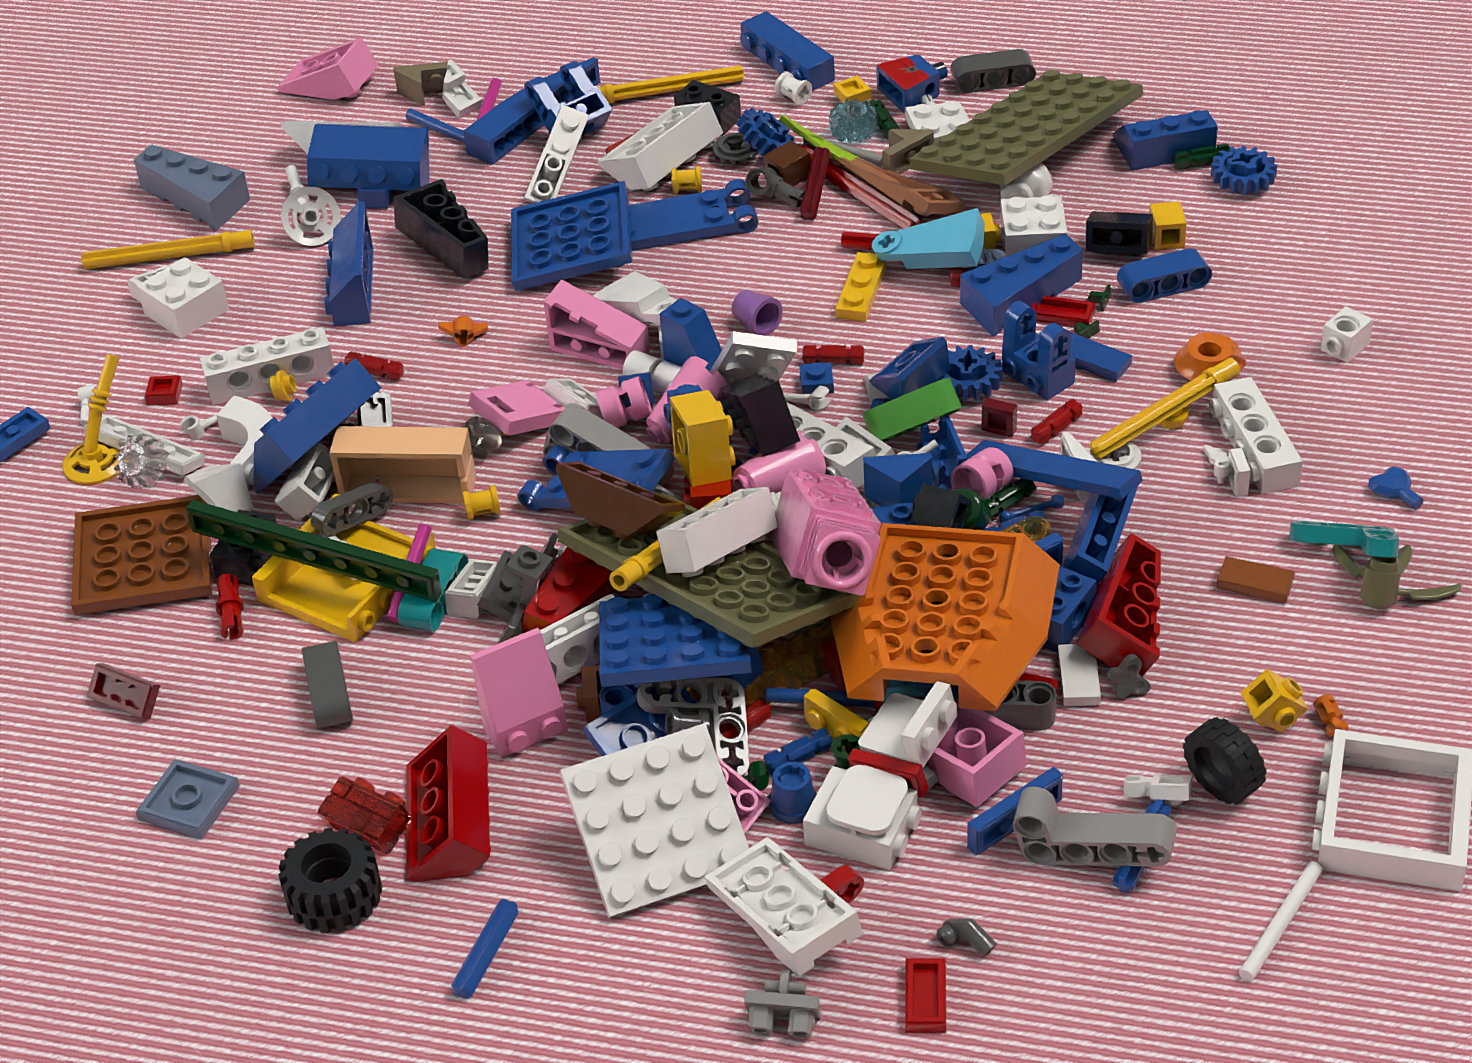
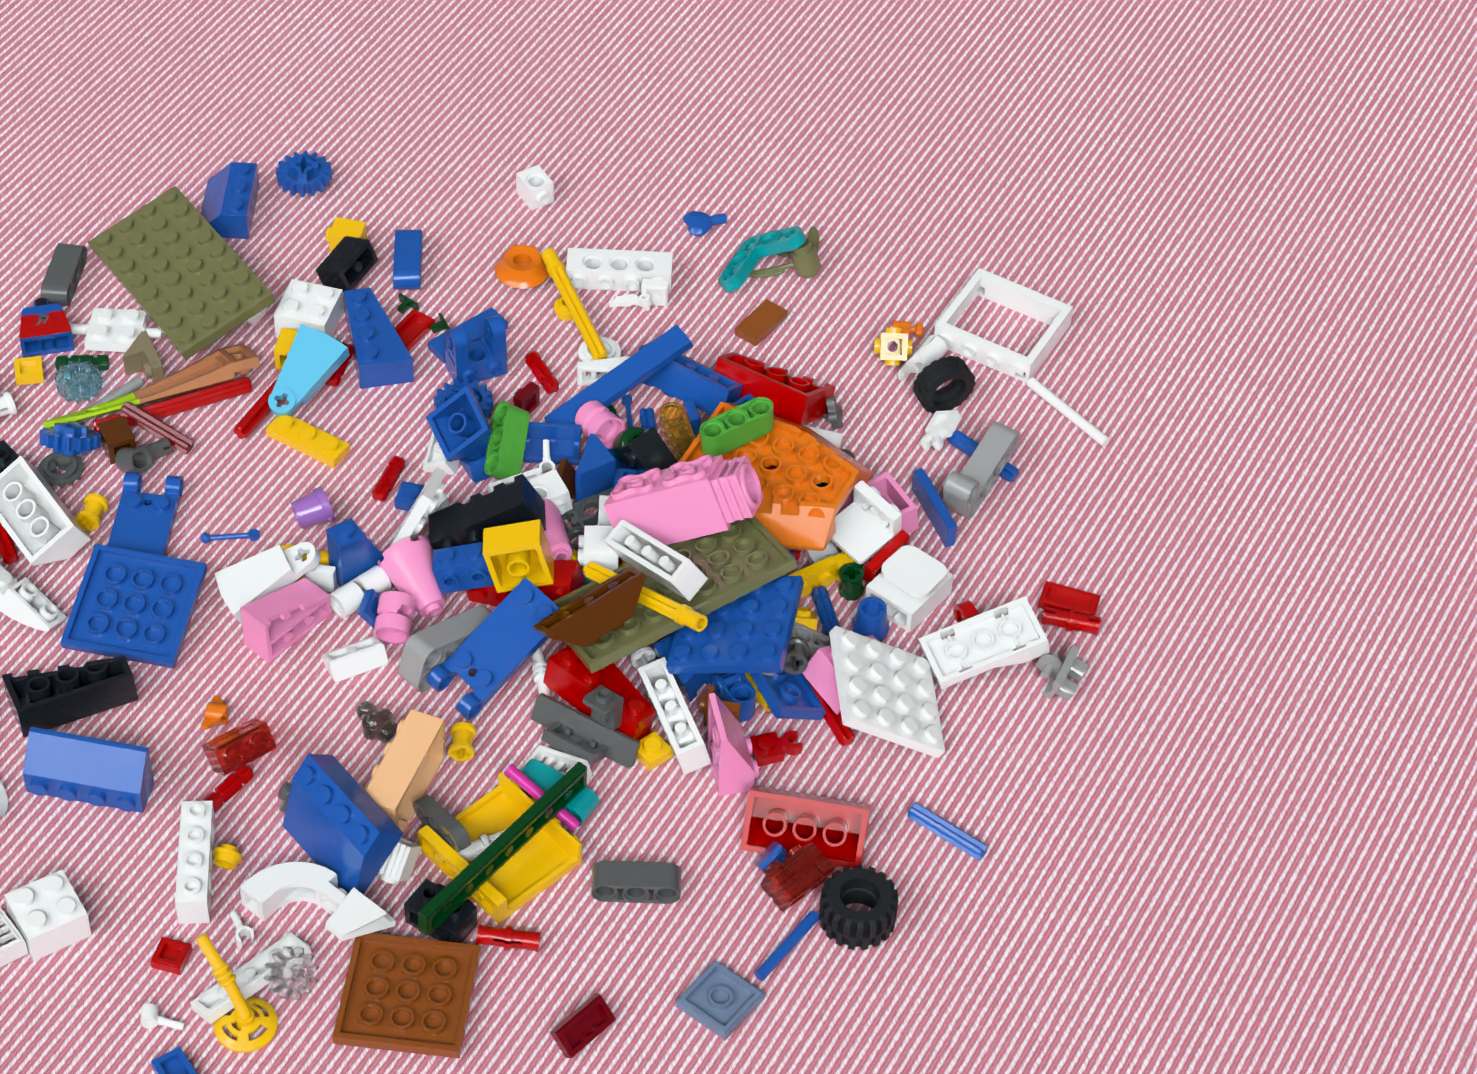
camera: 80 degrees left, 5 degrees up
(259, 833) = (786, 945): none -> blue bar
(386, 782) = (771, 854): none -> blue slope
(416, 350) = (239, 746): none -> clear red brick
(526, 407) = (355, 684): bright pink container -> none
(561, 750) = (770, 749): none -> red plate
(713, 290) = (253, 535): none -> blue hinge
(766, 729) = (806, 617): none -> yellow plate
(887, 1002) = (1071, 620): none -> red pin
(965, 930) = (1027, 562): dark grey arm -> none
(970, 546) = (737, 426): none -> bright green beam
(1198, 156) = (264, 191): dark green axle -> none
(1282, 742) = (929, 351): none -> white piece

